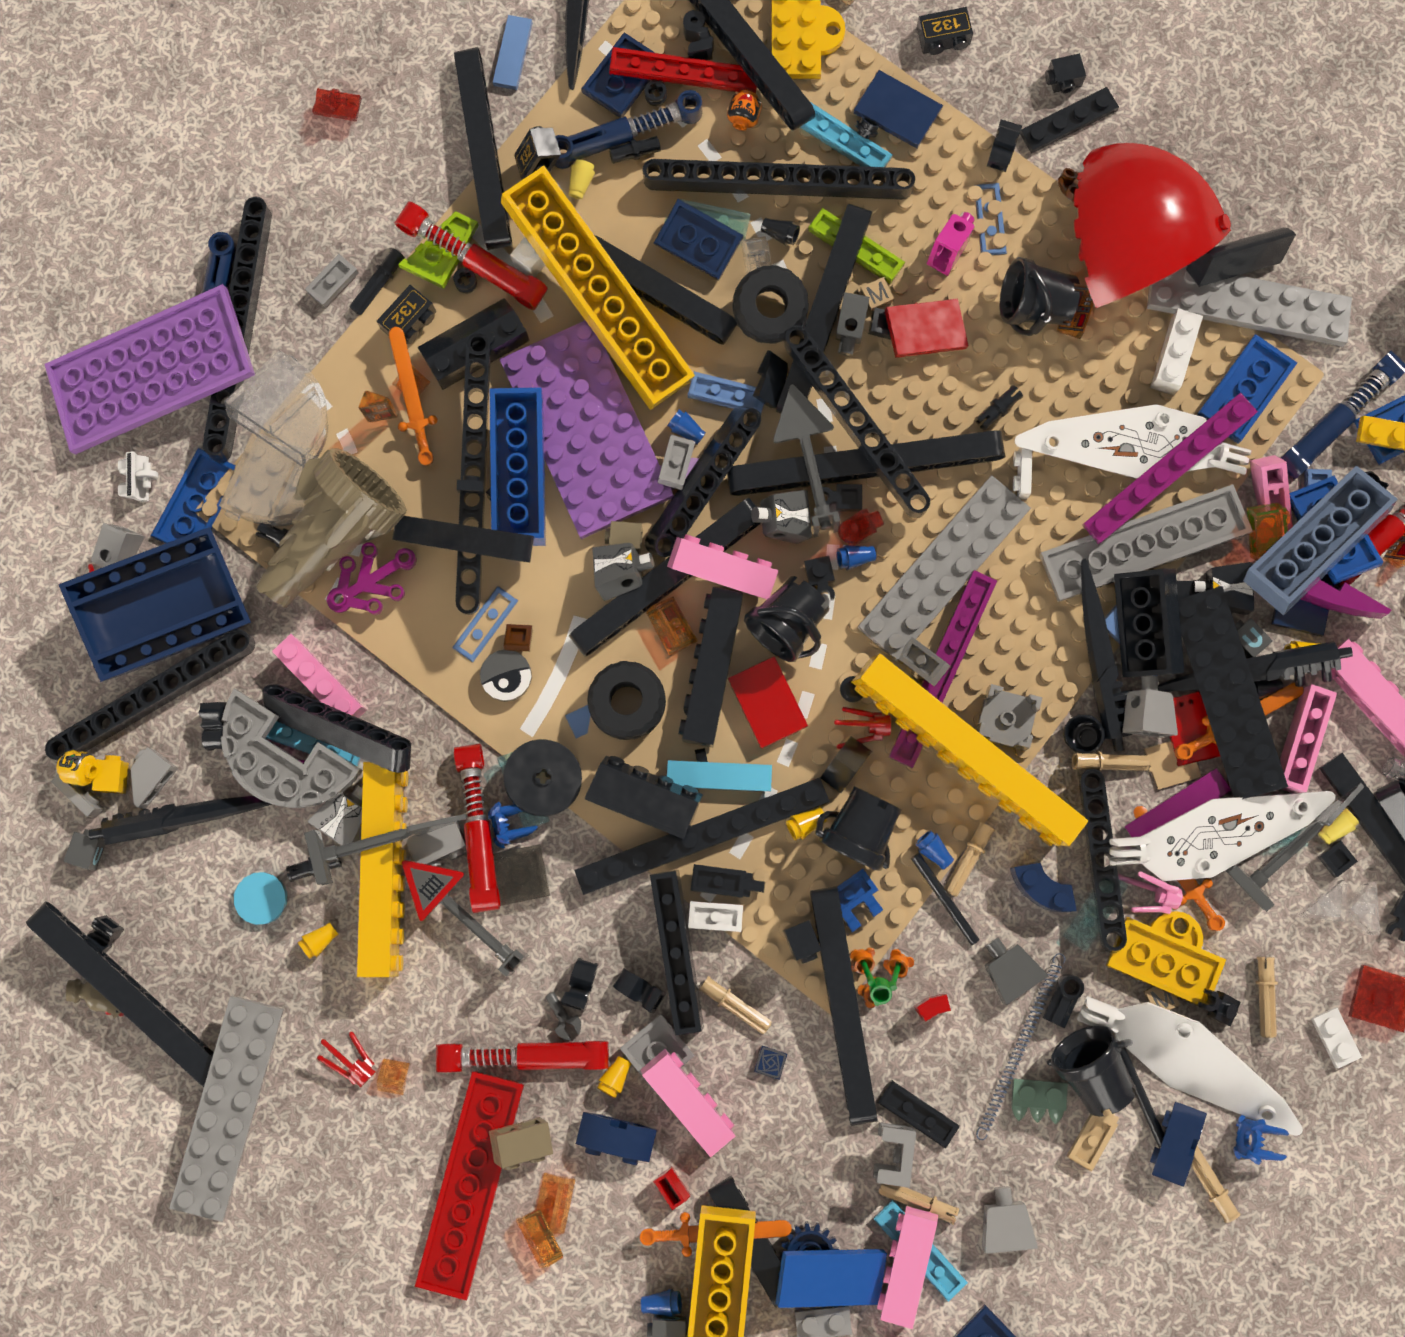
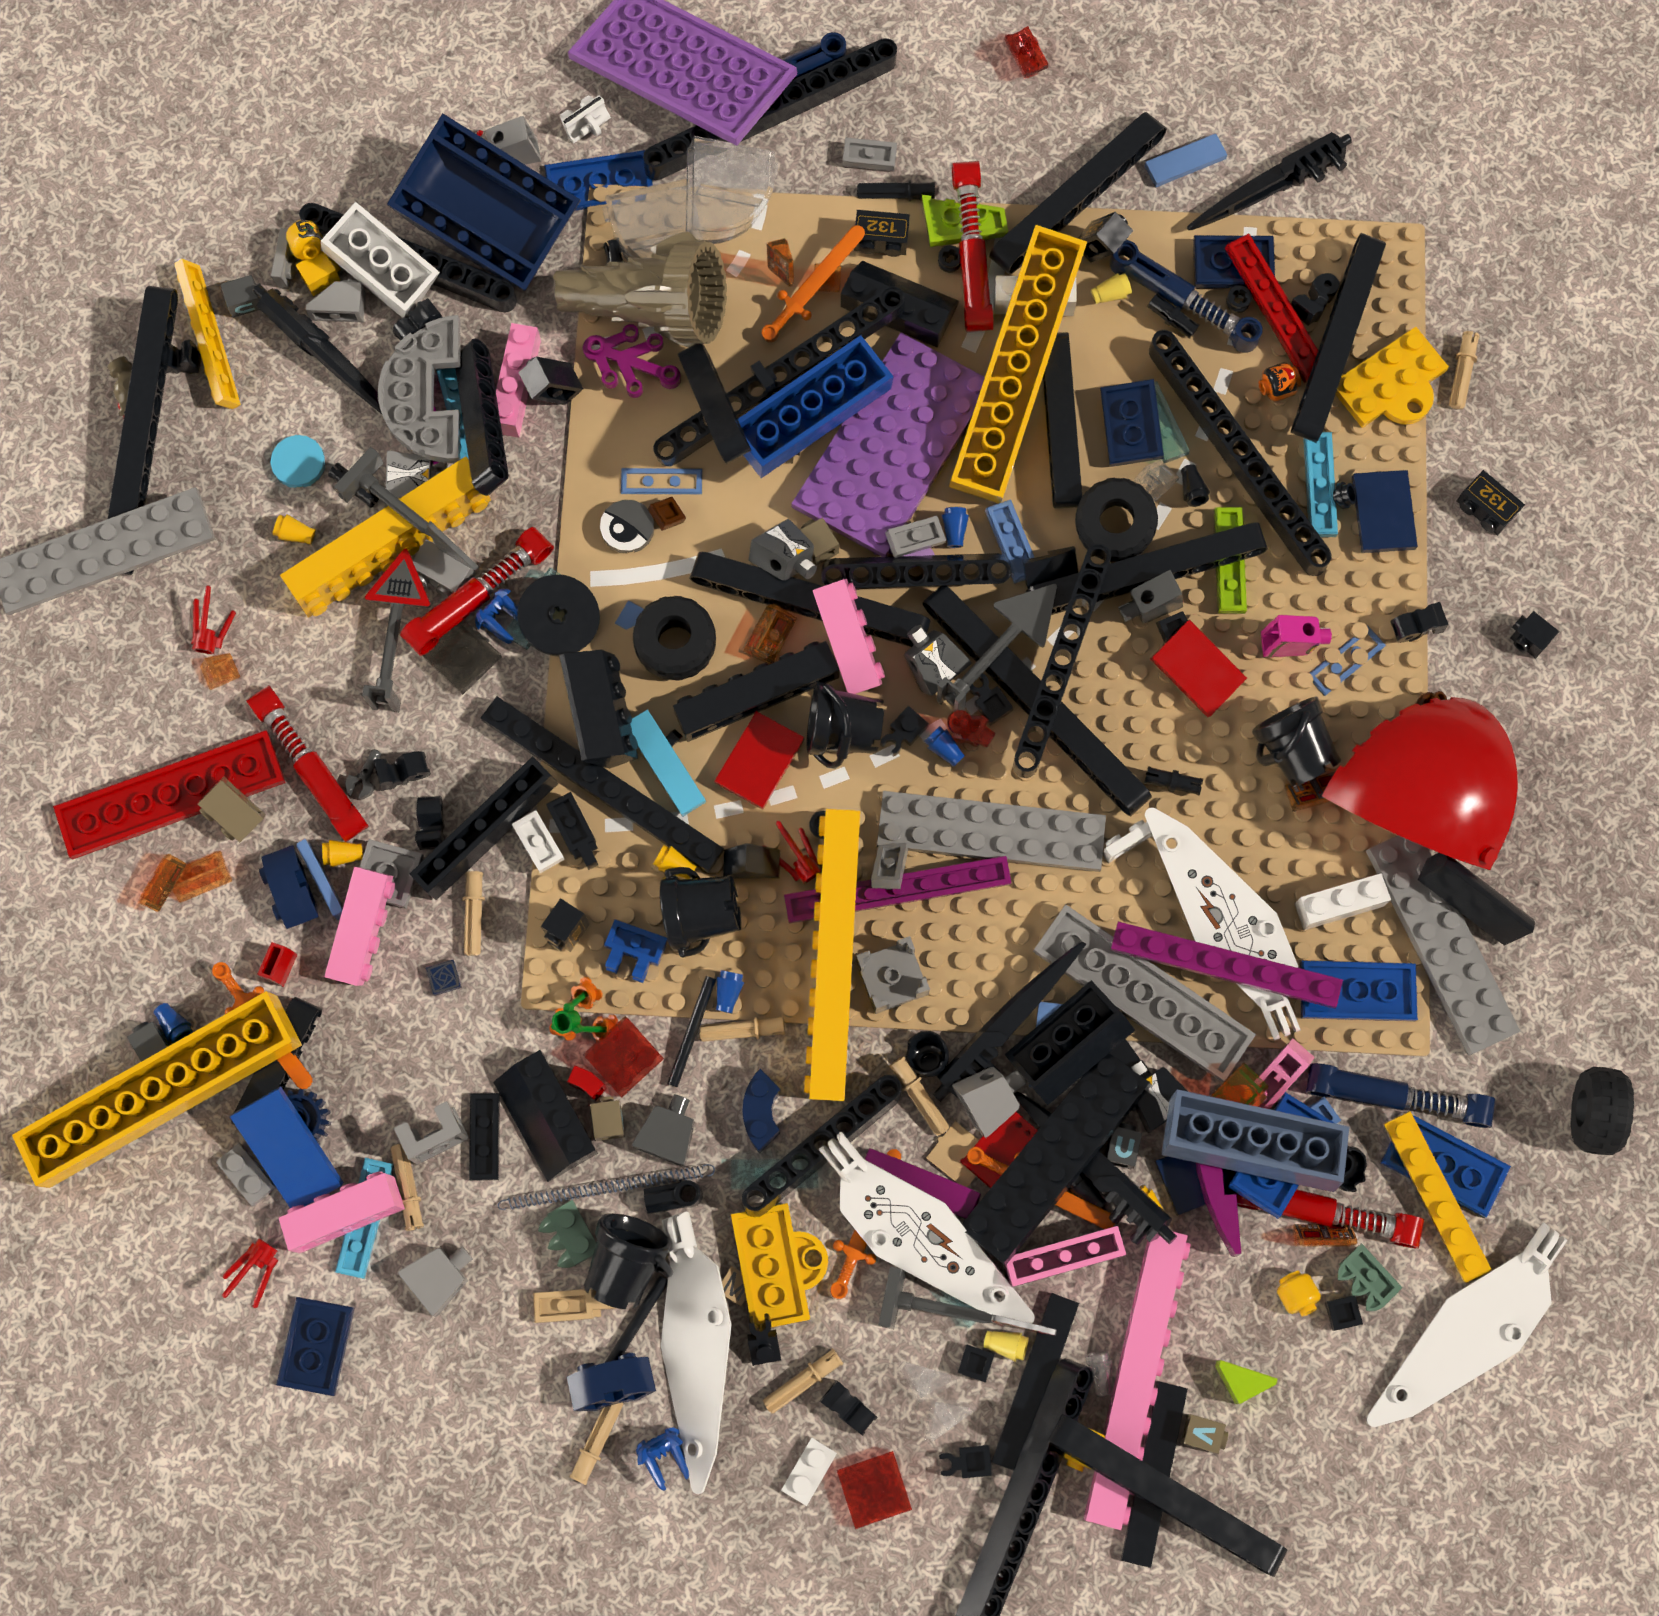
camera: 50 degrees right, 5 degrees down
(97, 900) = (207, 334): none -> yellow plate
(140, 720) = (379, 260): none -> white slope
(342, 653) = (550, 380): none -> black brick
(626, 1107) = (320, 878): none -> medium blue tile
(843, 1006) = (533, 1002): black beam -> none
(878, 292) = (1199, 606): tan tile -> none
(930, 965) = (623, 1056): none -> clear red plate
(936, 1056) = (545, 1116): none -> black slope
(970, 1009) = (607, 1119): none -> dark tan brick
(1069, 120) = (1493, 667): black plate -> none
(1166, 895) = (831, 1226): bright pink plant -> none
(1311, 976) = (848, 1407): none -> black leg

